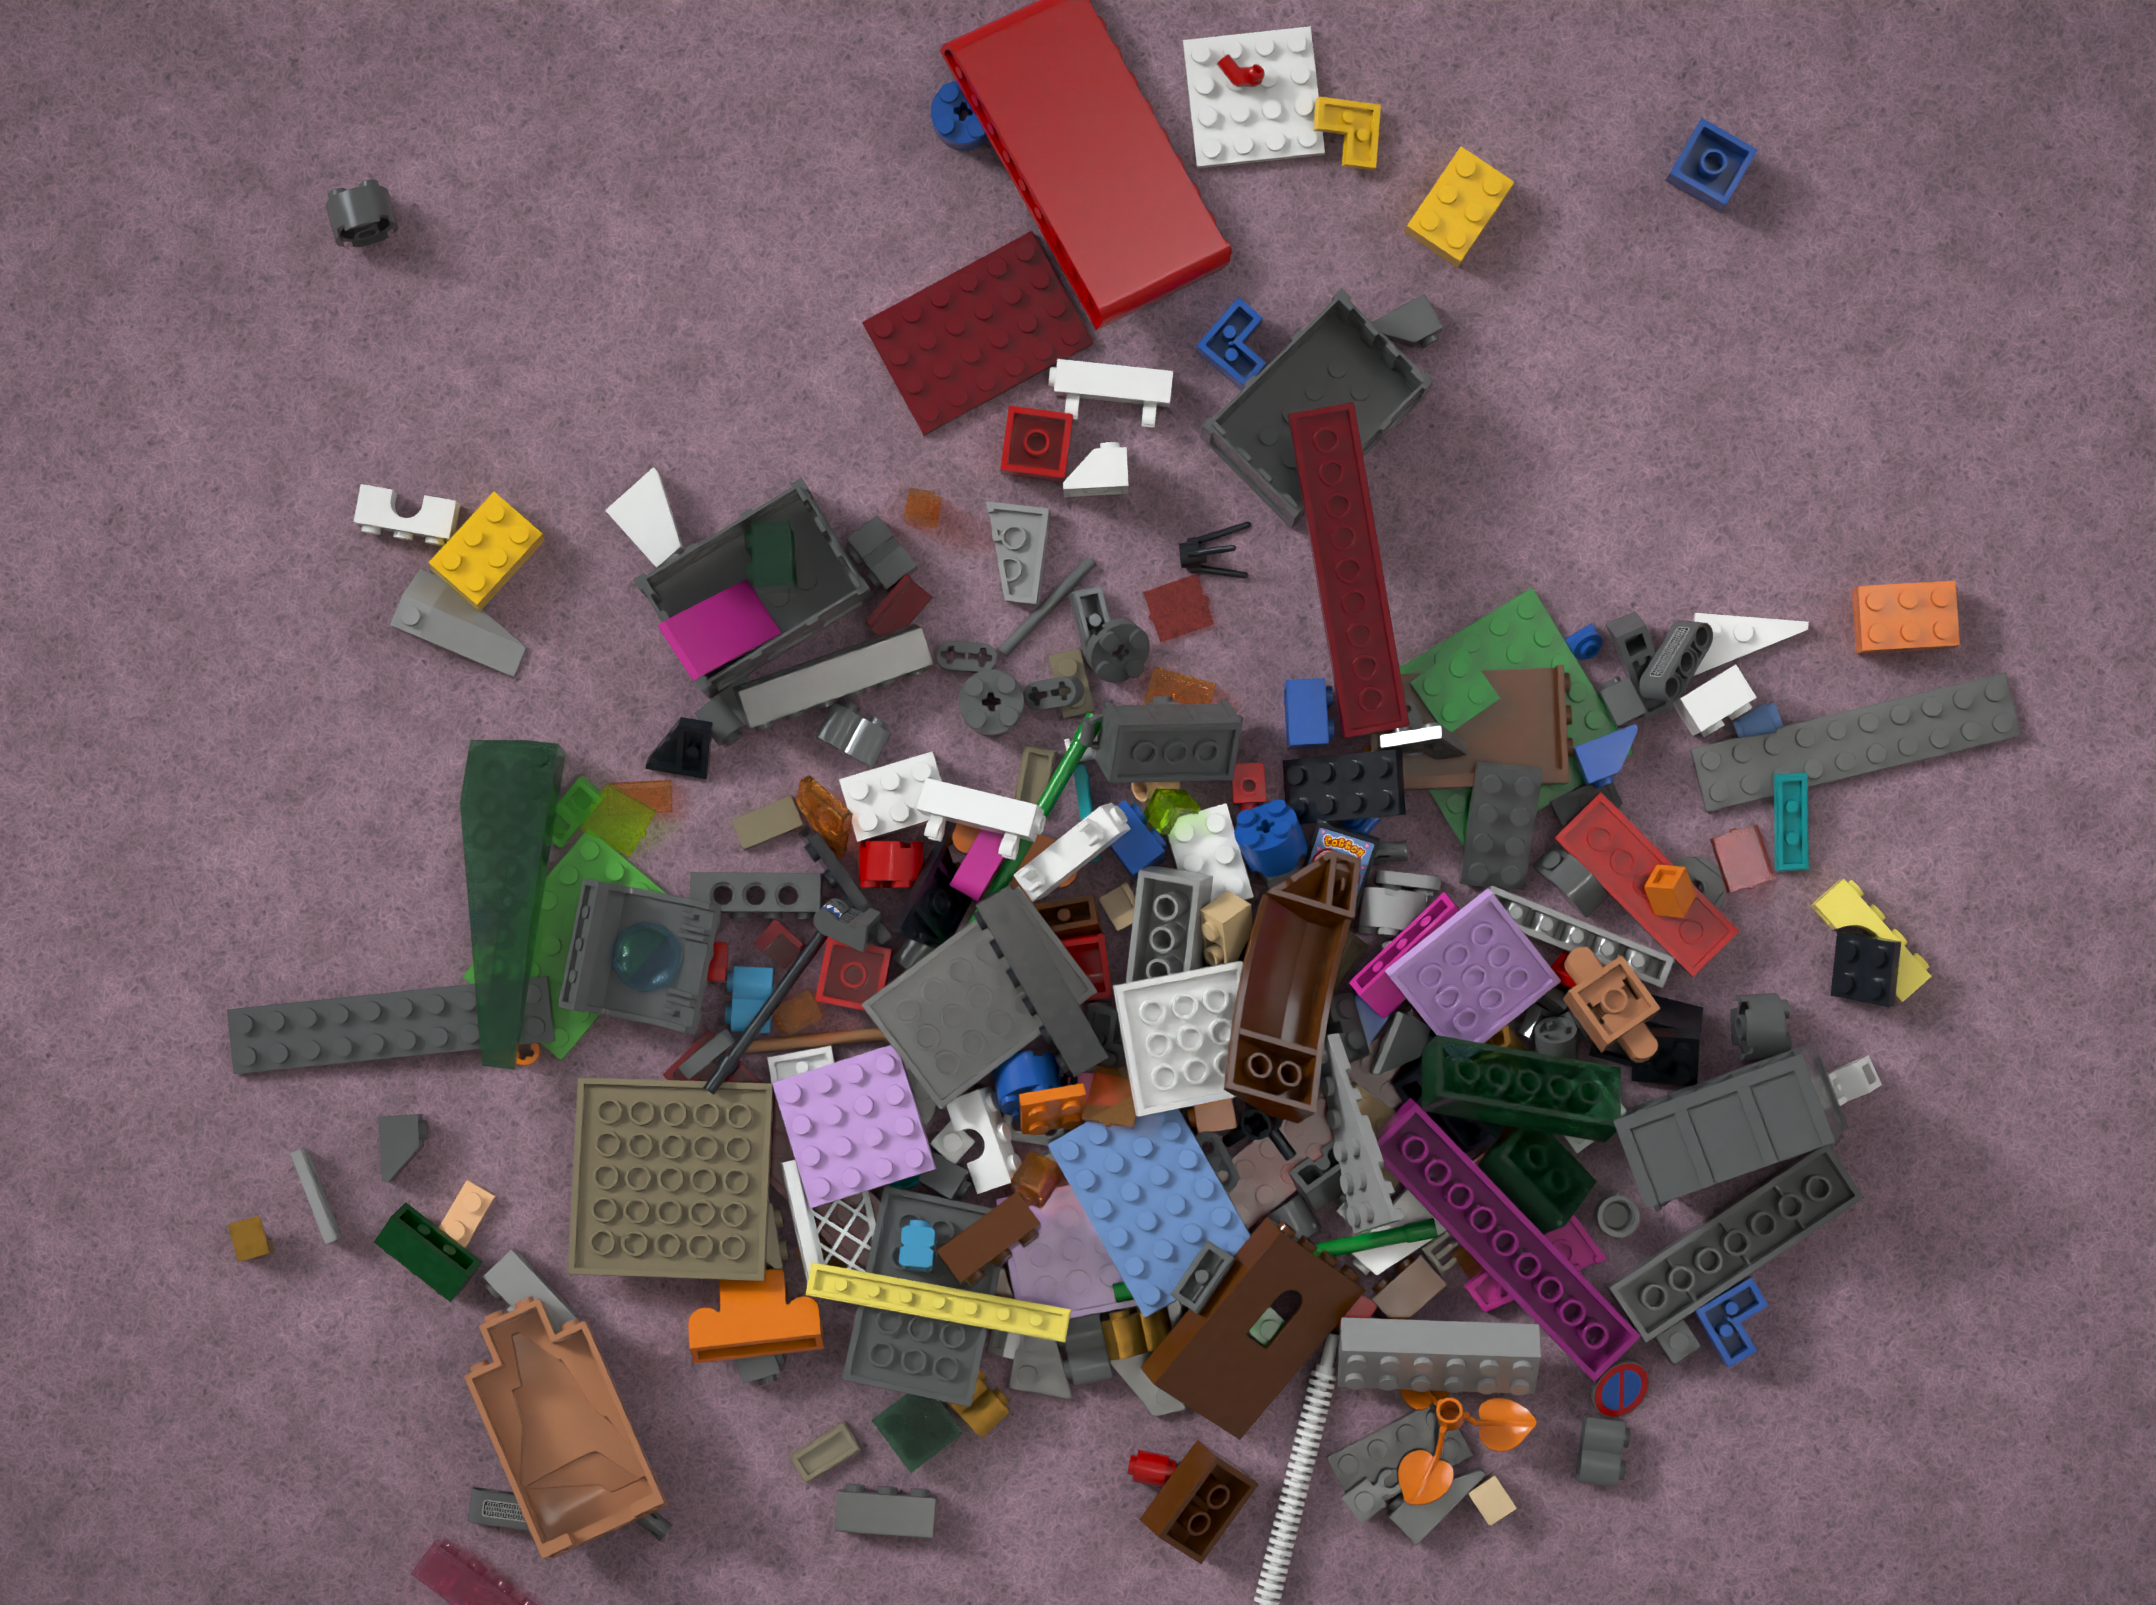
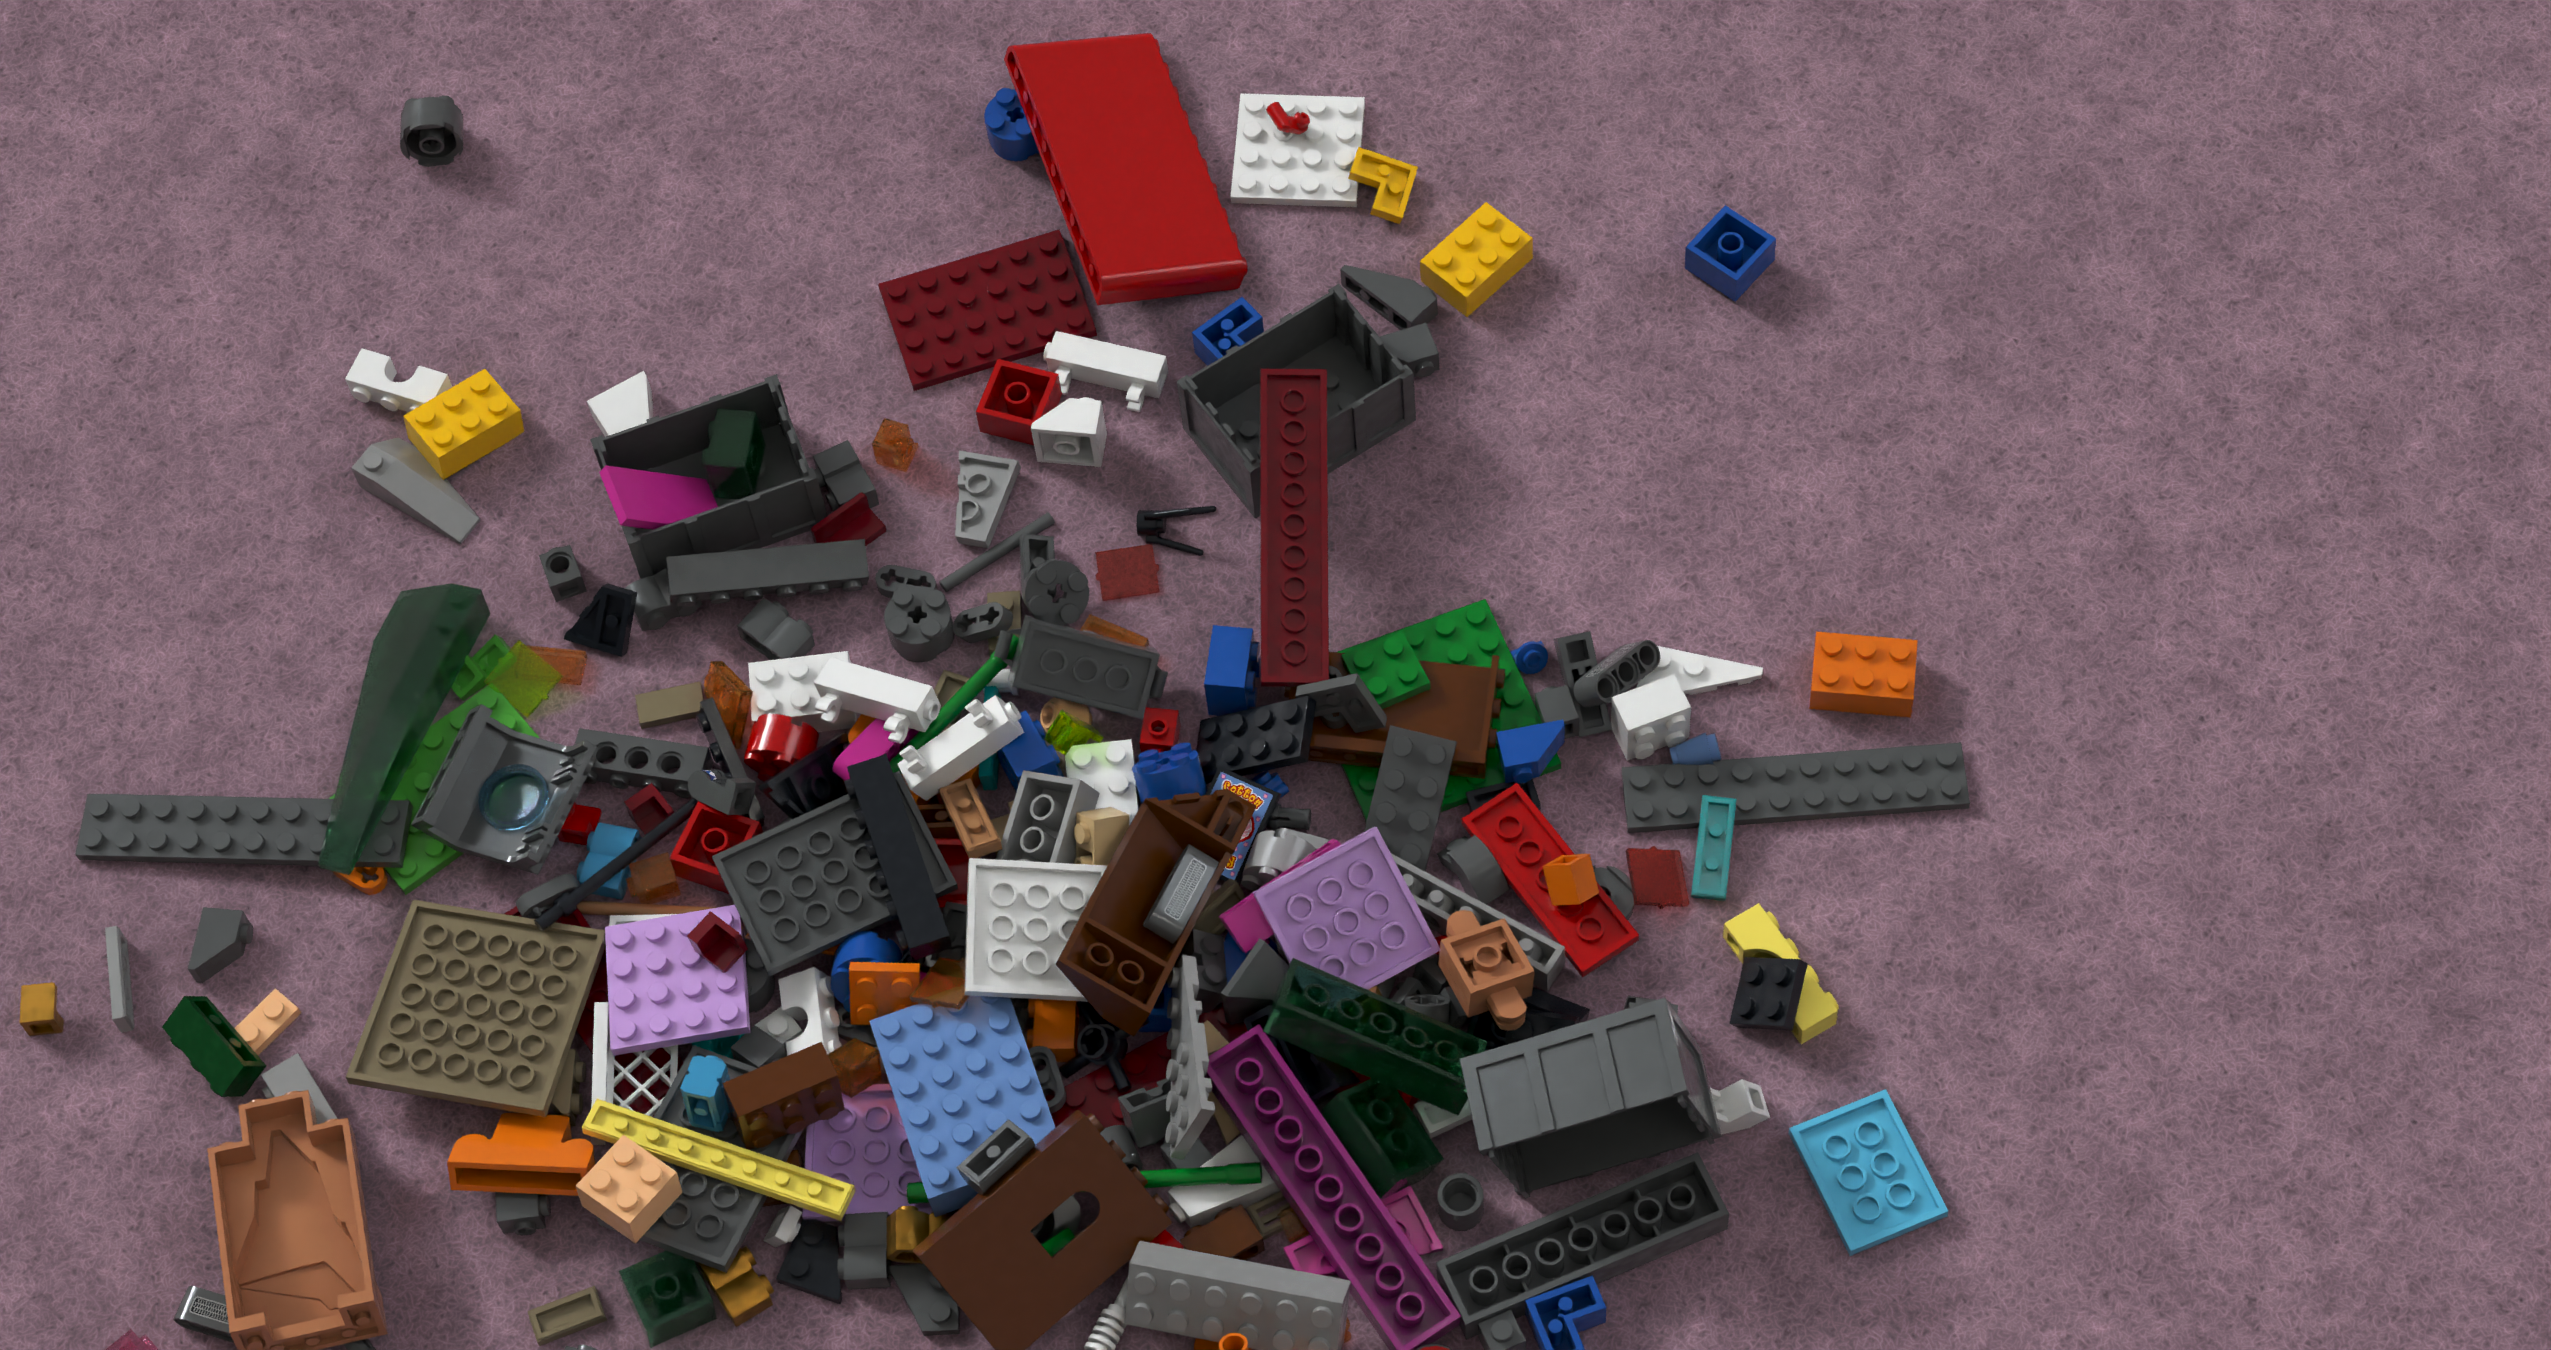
camera: 10 degrees right, 25 degrees down
(634, 711) = (567, 583): none -> dark grey brick
(868, 1353) = (629, 1189): none -> light nougat brick
(890, 1095) = (717, 942): none -> dark red panel
(1094, 919) = (970, 819): none -> medium nougat tile
(1312, 971) = (1180, 894): none -> dark grey beam
(1386, 264) = (1393, 297): none -> dark grey slope
(1977, 1123) = (1868, 1172): none -> medium azure plate

